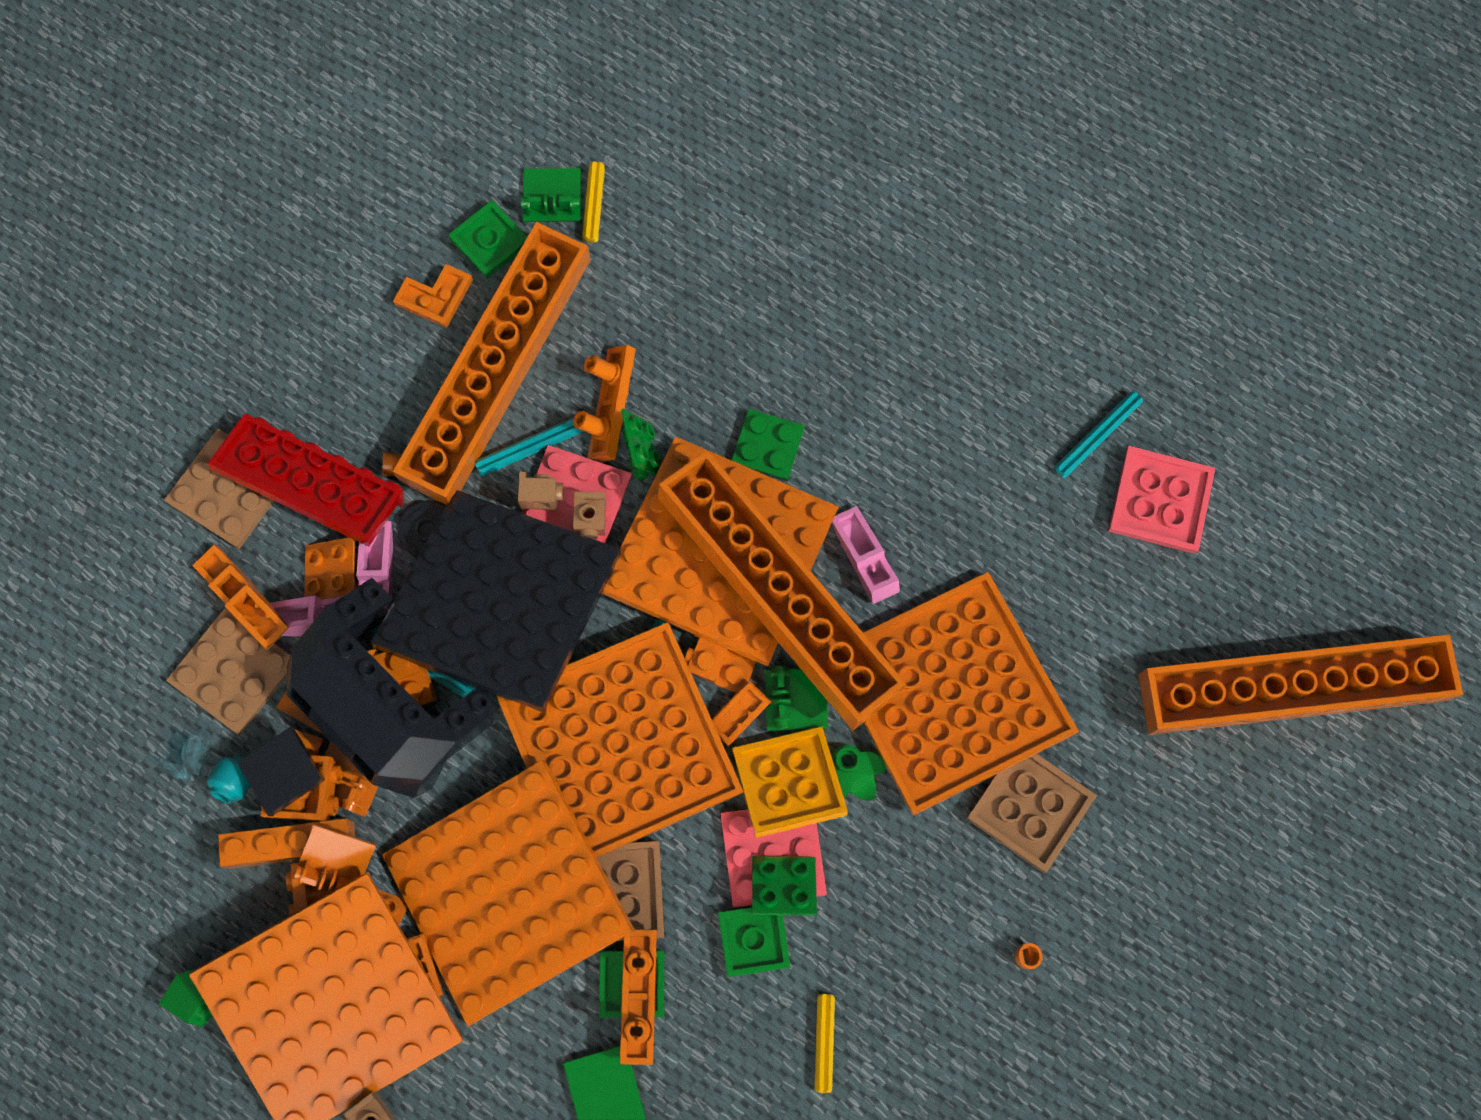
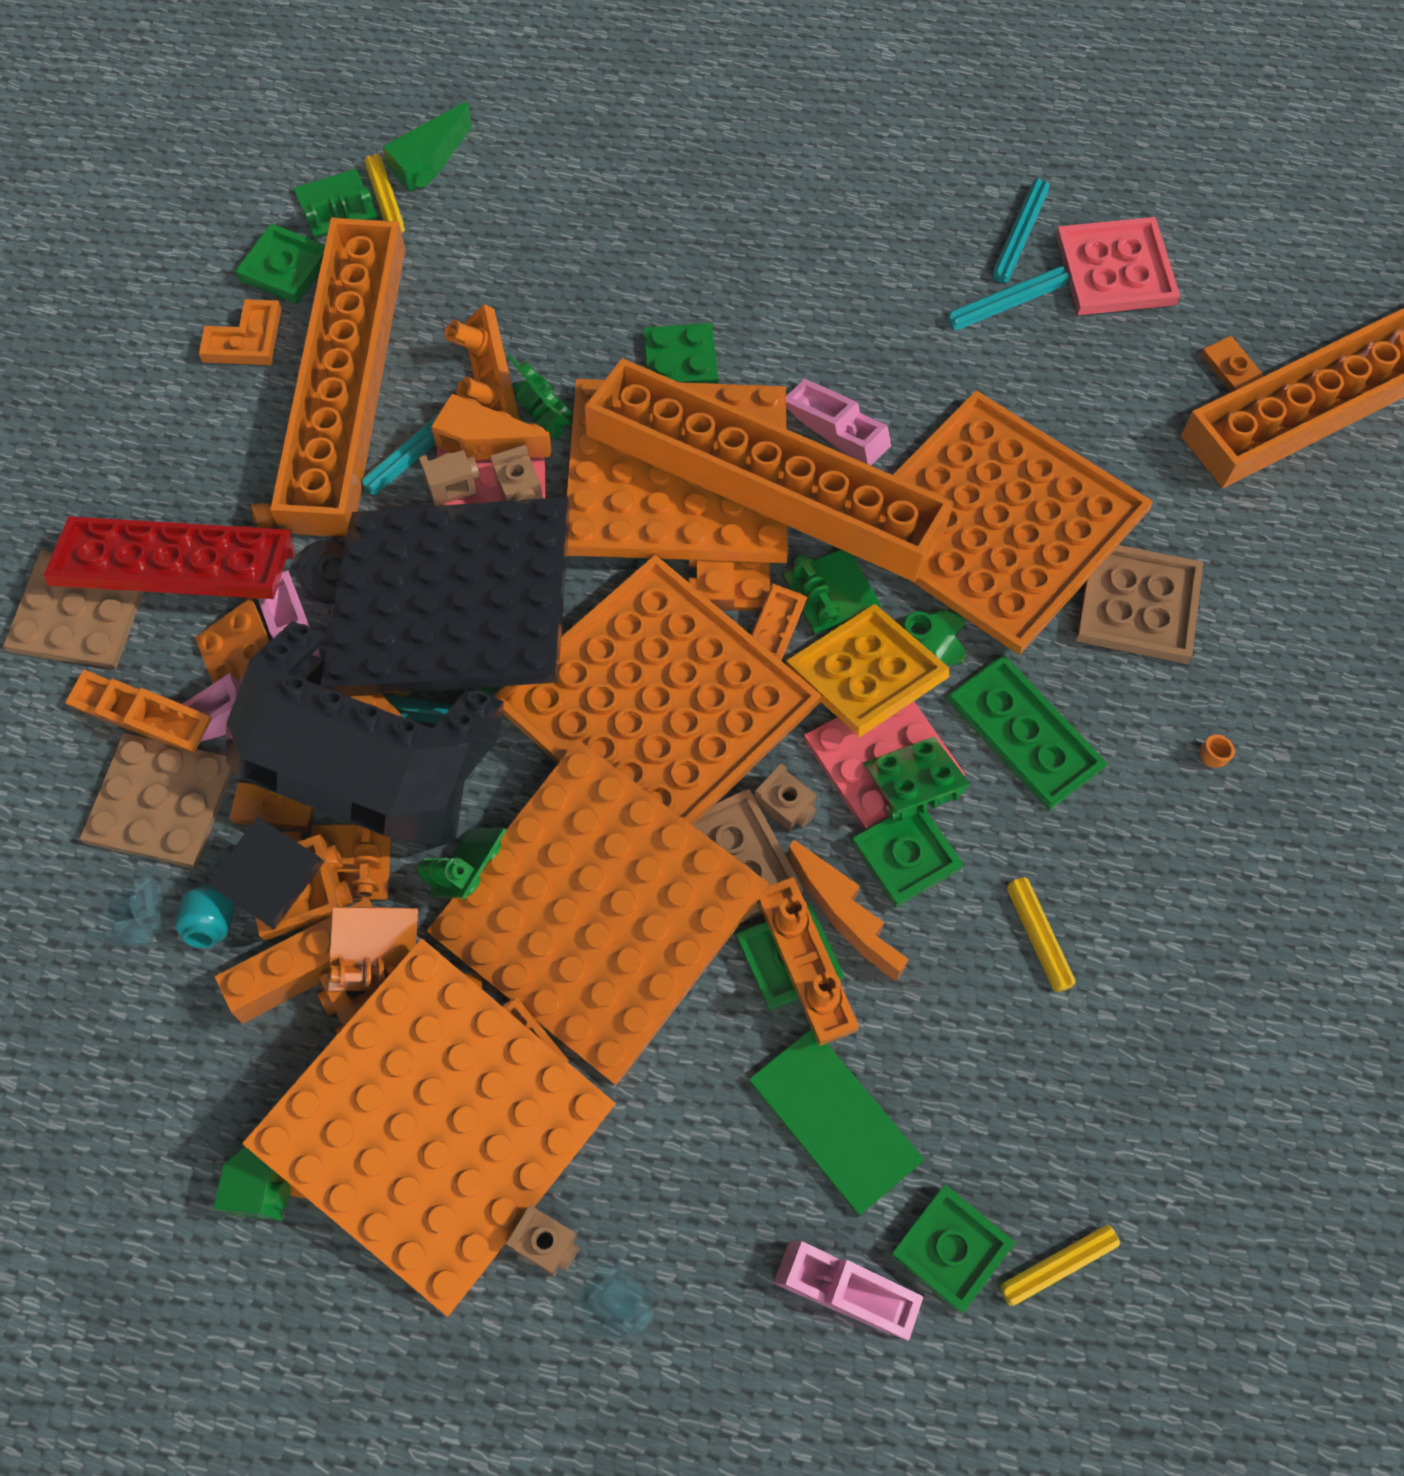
camera: 20 degrees left, 10 degrees down
(427, 818) = (461, 873): none -> green hinge
(577, 463) = (485, 432): none -> orange slope
(640, 174) = (426, 149): none -> green slope
(680, 848) = (785, 812): none -> medium nougat brick
(684, 954) = (835, 897): none -> orange slope
(891, 878) = (1026, 732): none -> green tile
(1057, 494) = (1007, 298): none -> teal axle
(1213, 632) = (1231, 363): none -> orange plate

